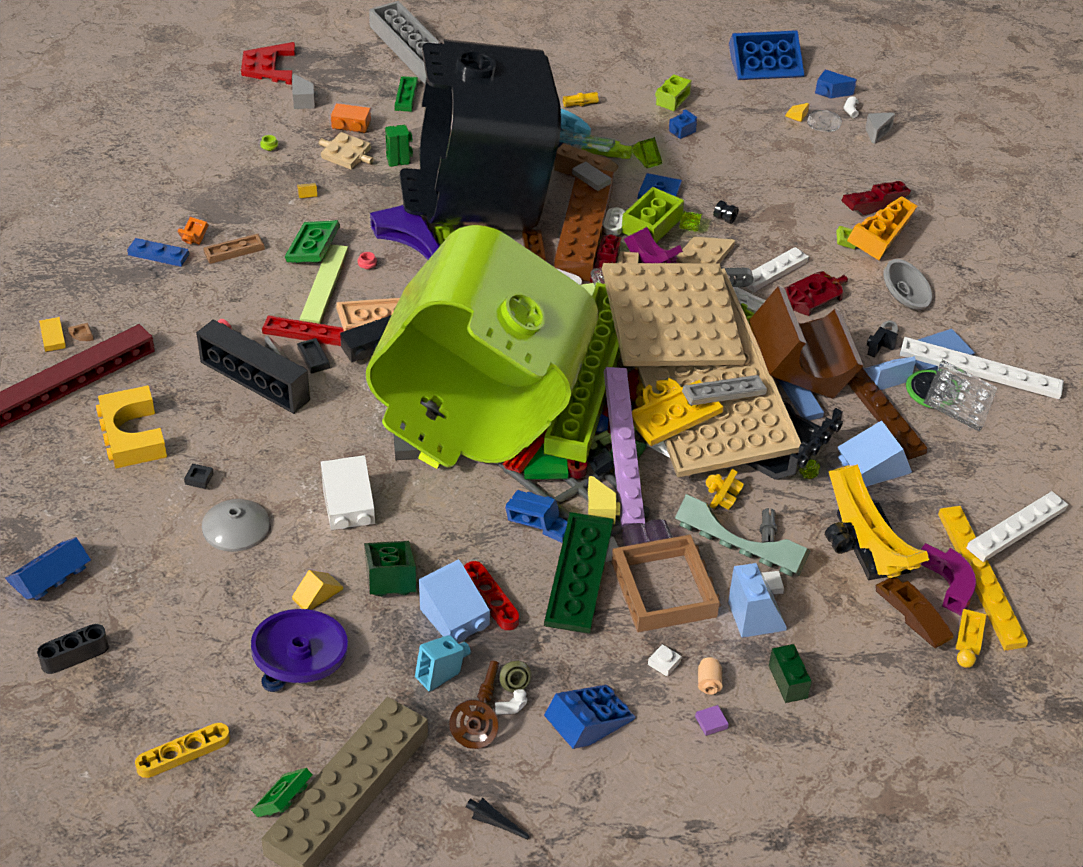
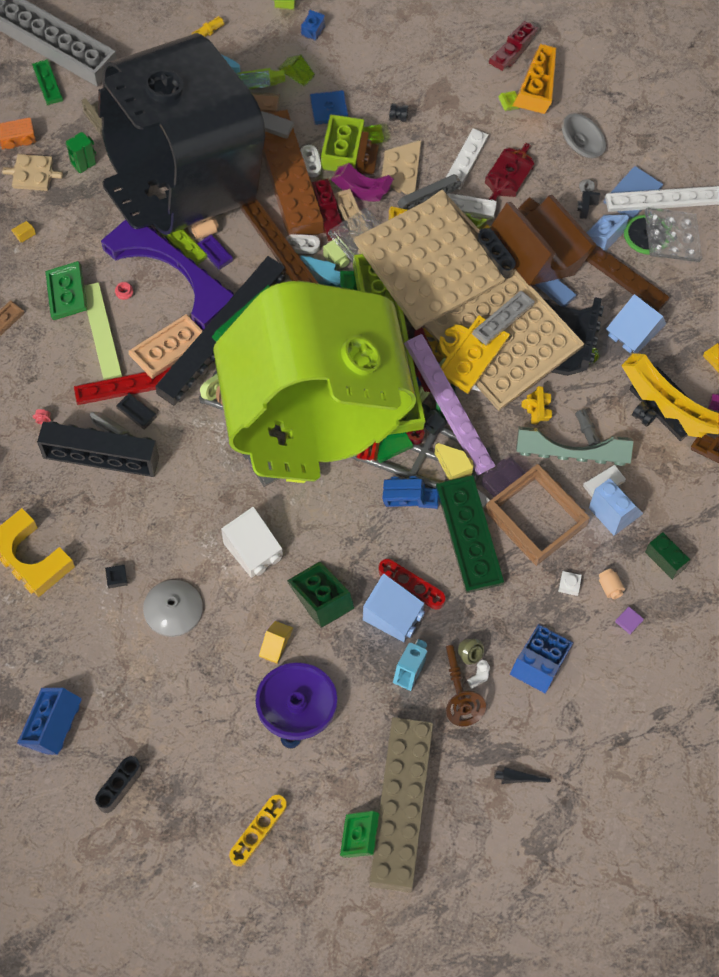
camera: 25 degrees left, 20 degrees up
(671, 232) = (367, 155): none -> reddish brown bracket
(749, 333) = (495, 245): none -> black beam

